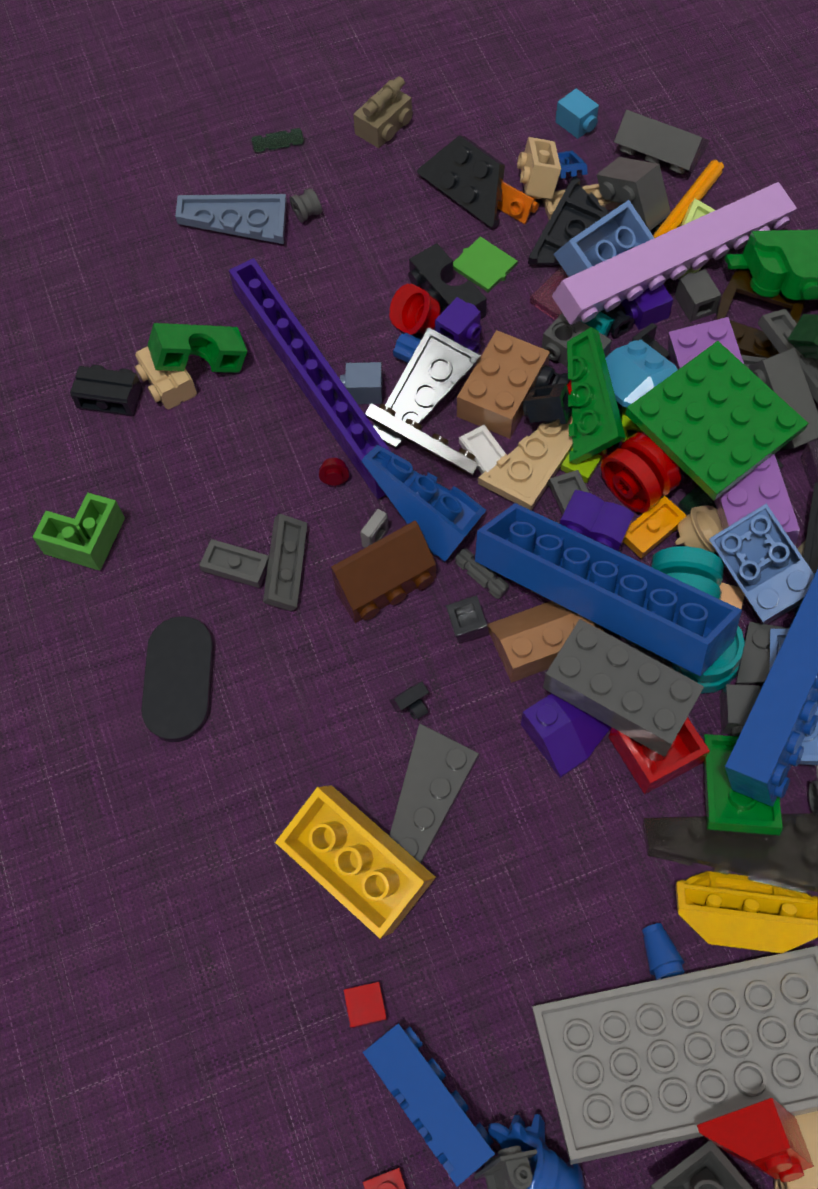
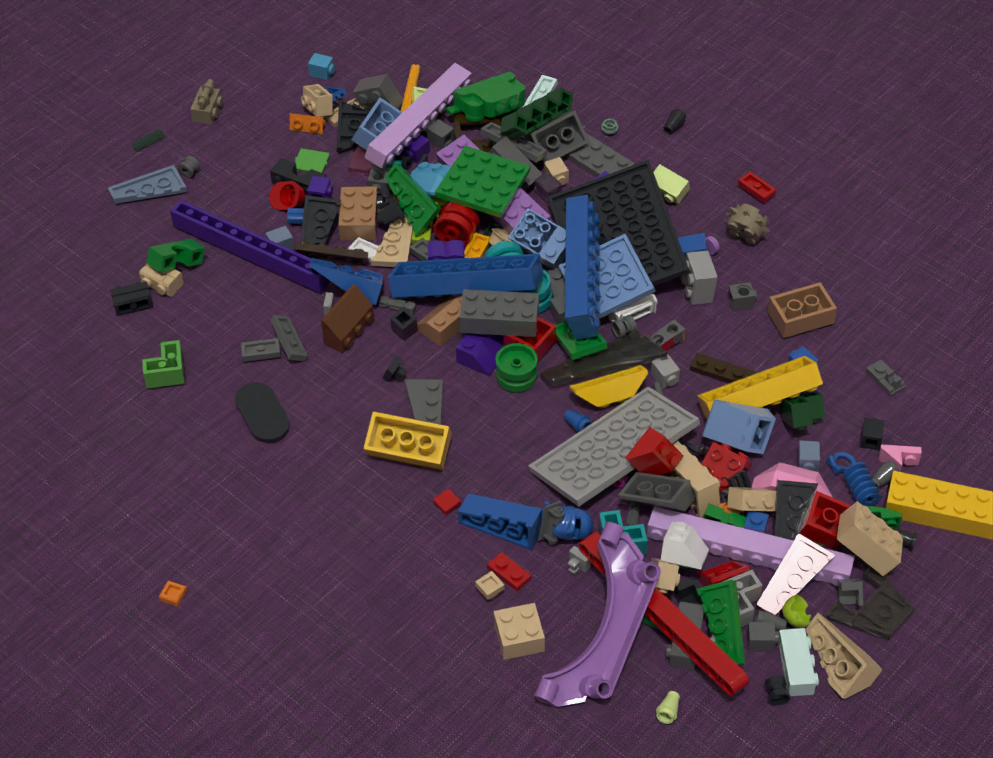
camera: 30 degrees left, 15 degrees down
(333, 472) = (289, 288): dark red plate -> none
(468, 177) = (278, 119): black wing -> none
(603, 775) = (516, 367): none -> green wheel
(660, 142) = (377, 65): dark grey slope -> none

